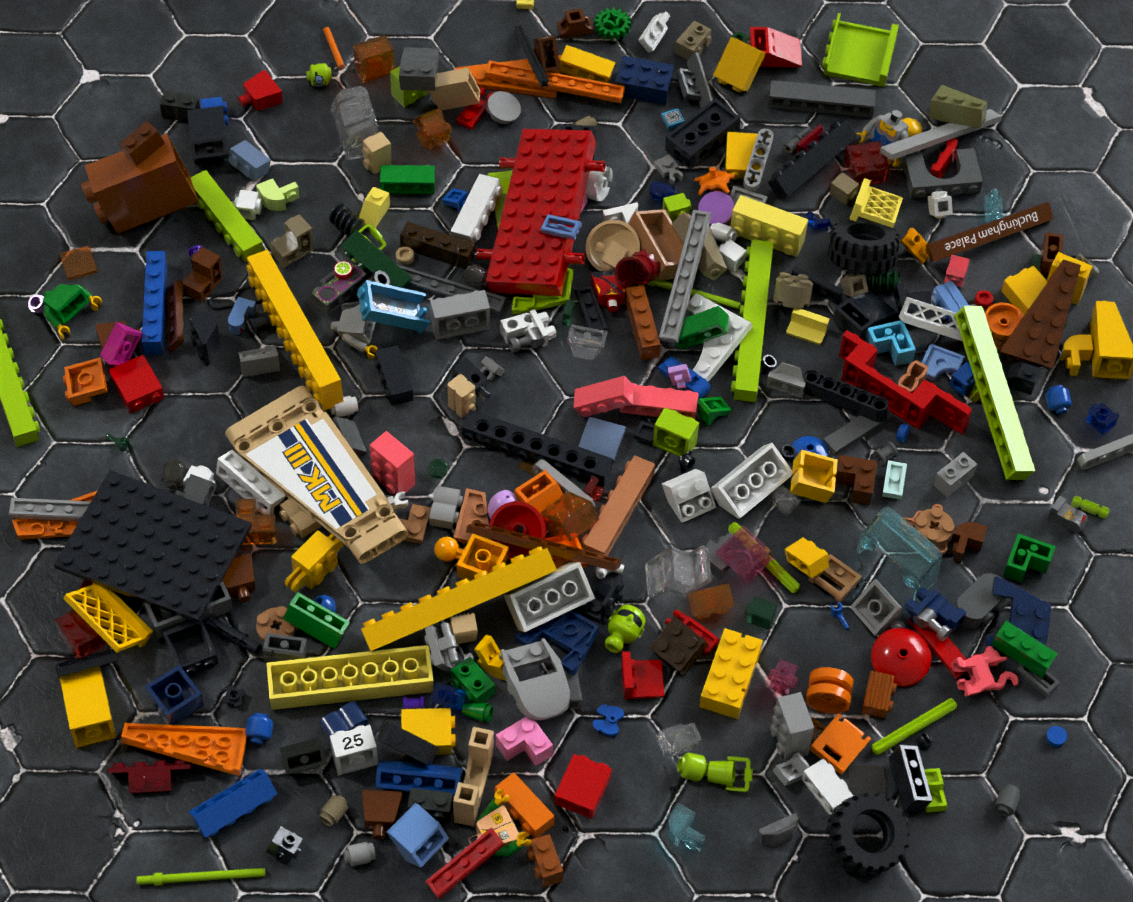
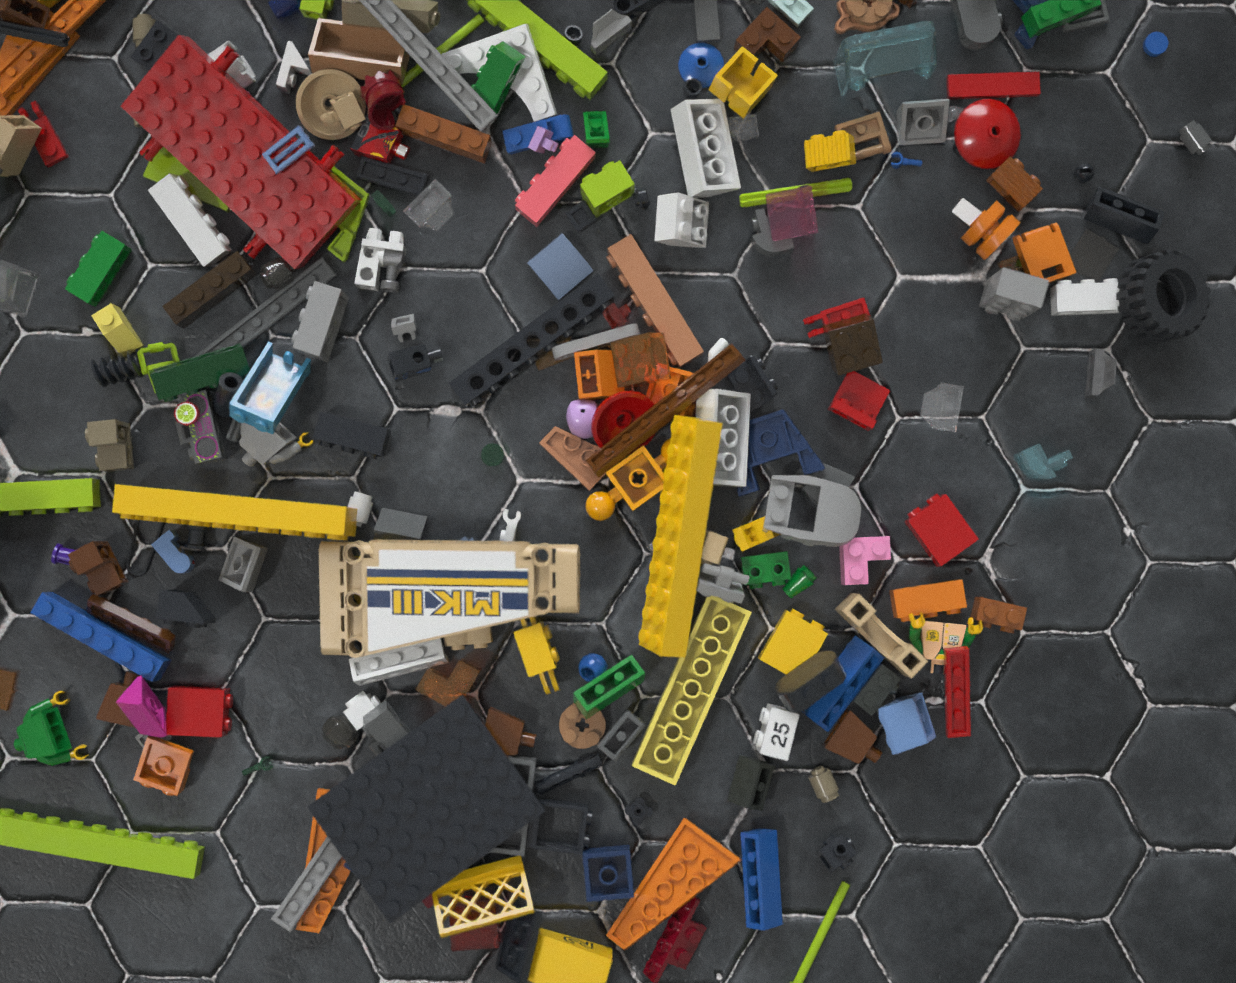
camera: 55 degrees left, 30 degrees up
(33, 301) = (21, 766): medium lavender plate -> none
(248, 204) = (26, 462): white brick -> none
(259, 728) = (691, 807): blue head -> none
(276, 198) = (36, 427): yellowish green brick -> none
(344, 719) = (736, 721): dark blue brick -> none
(359, 854) = (884, 784): light grey brick -> none
(376, 152) = (44, 283): tan brick -> none
(392, 464) = (473, 507): coral brick -> none
(405, 255) = (198, 331): tan tile -> none
(413, 703) = (756, 641): dark purple bush -> none
(417, 523) = (549, 519): medium nougat plate -> none
(432, 129) = (48, 201): clear orange brick -> none
(445, 507) = (547, 476): light grey brick -> none
(448, 696) = (771, 604): clear blue brick -> none
(455, 198) = (159, 231): blue bracket -> none
(461, 396) = (427, 382): tan brick -> none
(503, 107) = (61, 103): light grey tile -> none
(603, 396) = (520, 236): coral brick -> none
(609, 726) = (880, 453): blue piece -> none
(624, 627) = (797, 382): lime piece -> none
(678, 571) = (769, 291): clear bracket -> none
(692, 766) = (983, 412): lime head -> none
(710, 600) = (818, 279): clear orange brick -> none
(724, 773) = (1010, 387): lime piece -> none
(731, 673) = (908, 311): yellow piece -> none
(760, 612) = (858, 237): clear green brick -> none
(783, 677) = (944, 263): clear pink brick -> none
(791, 770) = (1043, 322): light grey bracket -> none
(914, 726) = (1064, 171): lime axle -> none
(933, 609) = (960, 68): dark blue hips -> none
(936, 786) = (1137, 192): lime slope -> none
(980, 674) = (1052, 70): coral animal -> none

